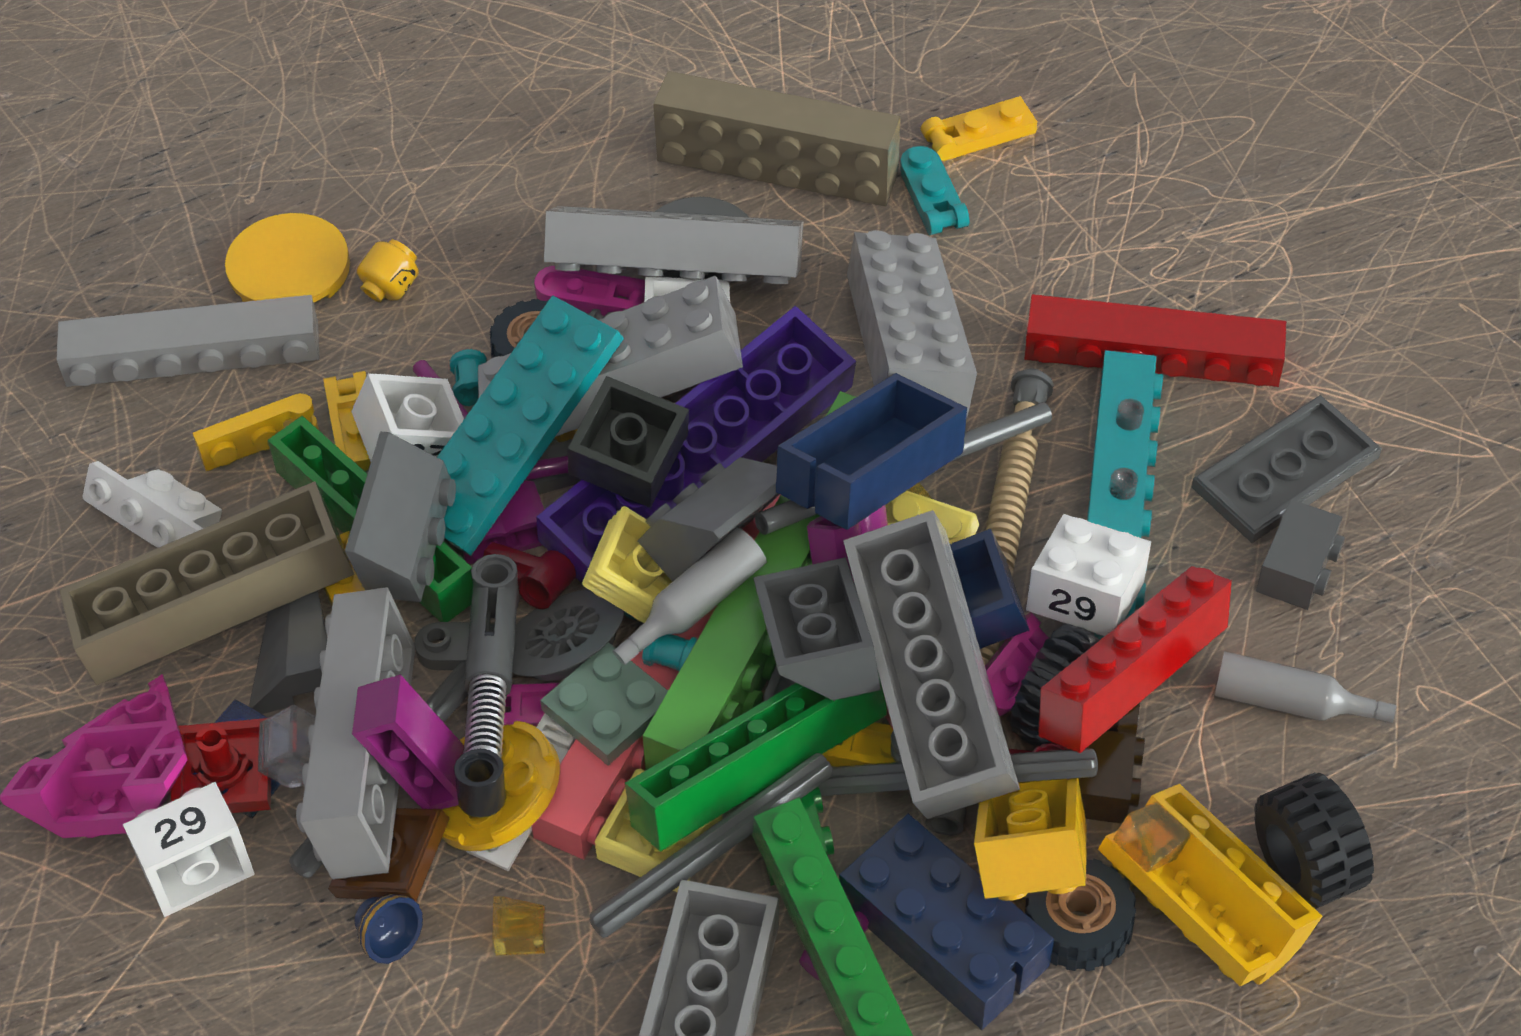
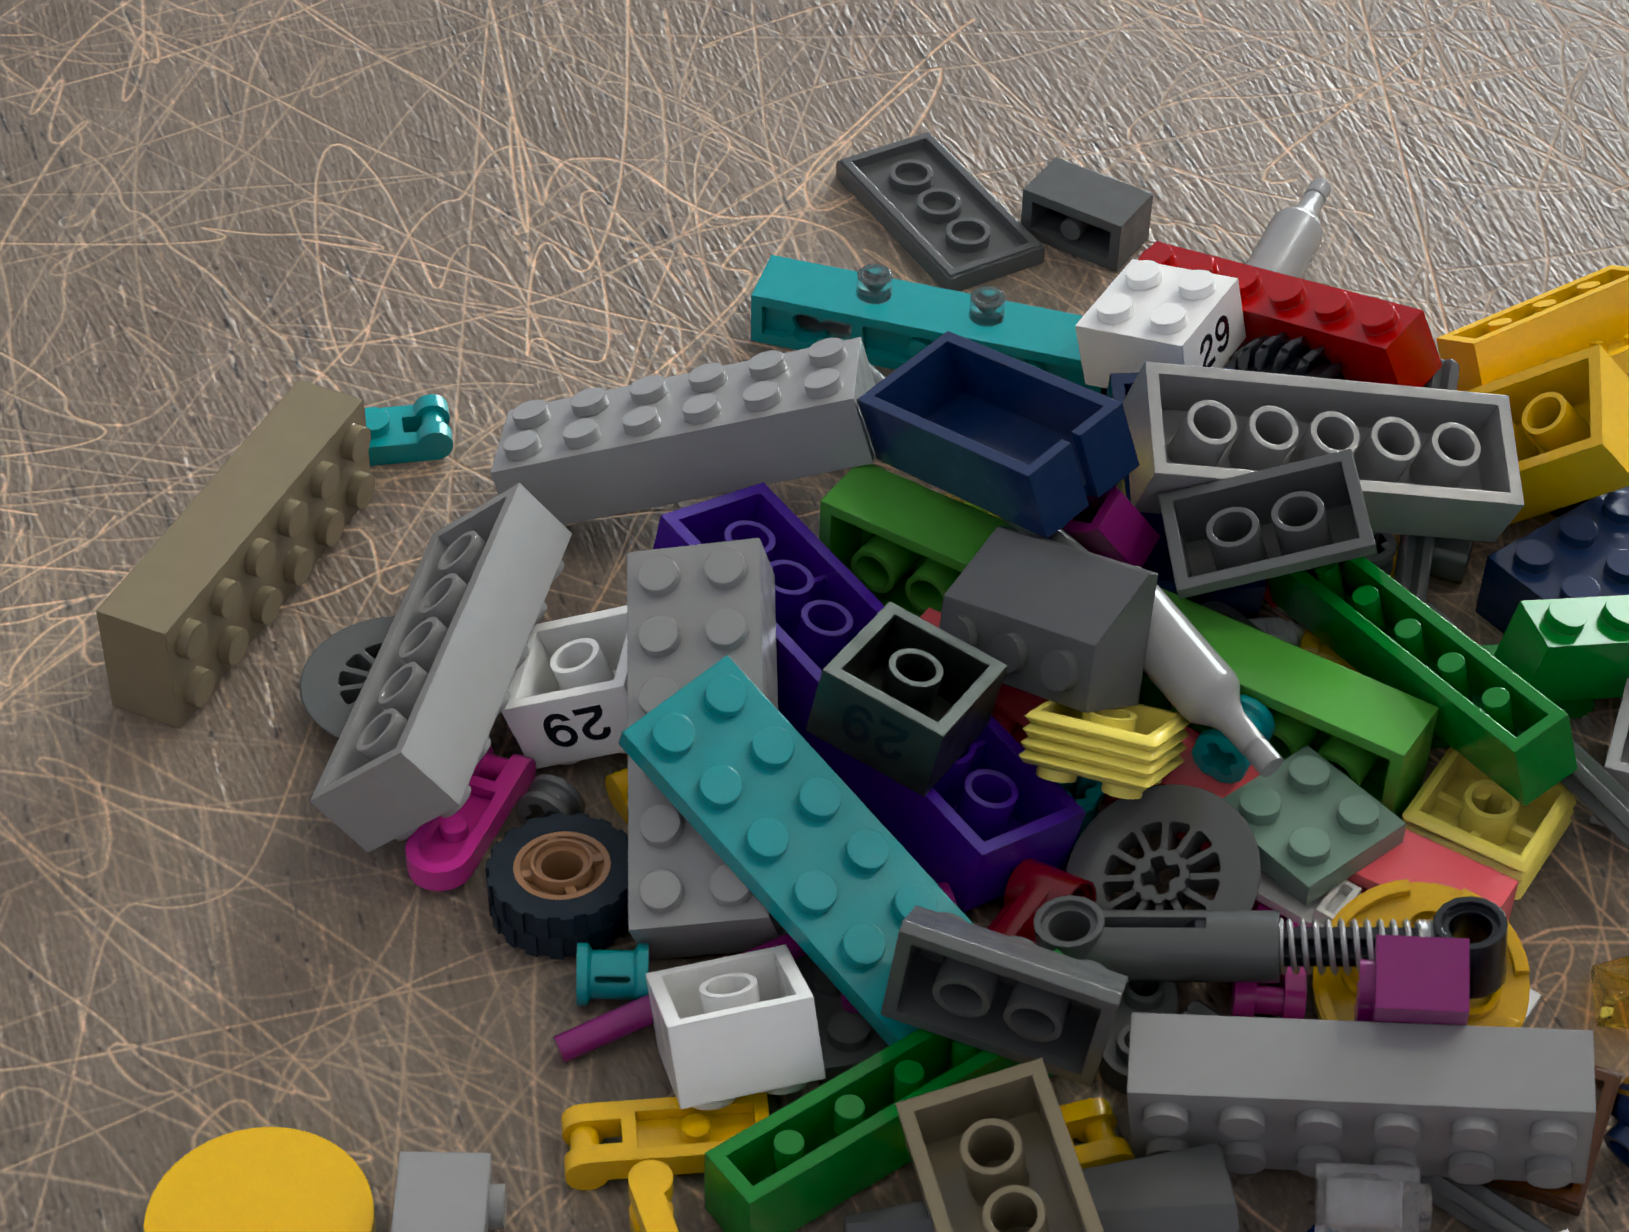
camera: 85 degrees left, 10 degrees down
(387, 270) = (346, 1065): yellow head -> none
(979, 128) = (257, 365): yellow plate -> none
(1152, 836) = (1517, 351): clear yellow slope -> none
(1183, 340) = (716, 274): red brick -> none
(1314, 839) = (1519, 240): black tyre -> none

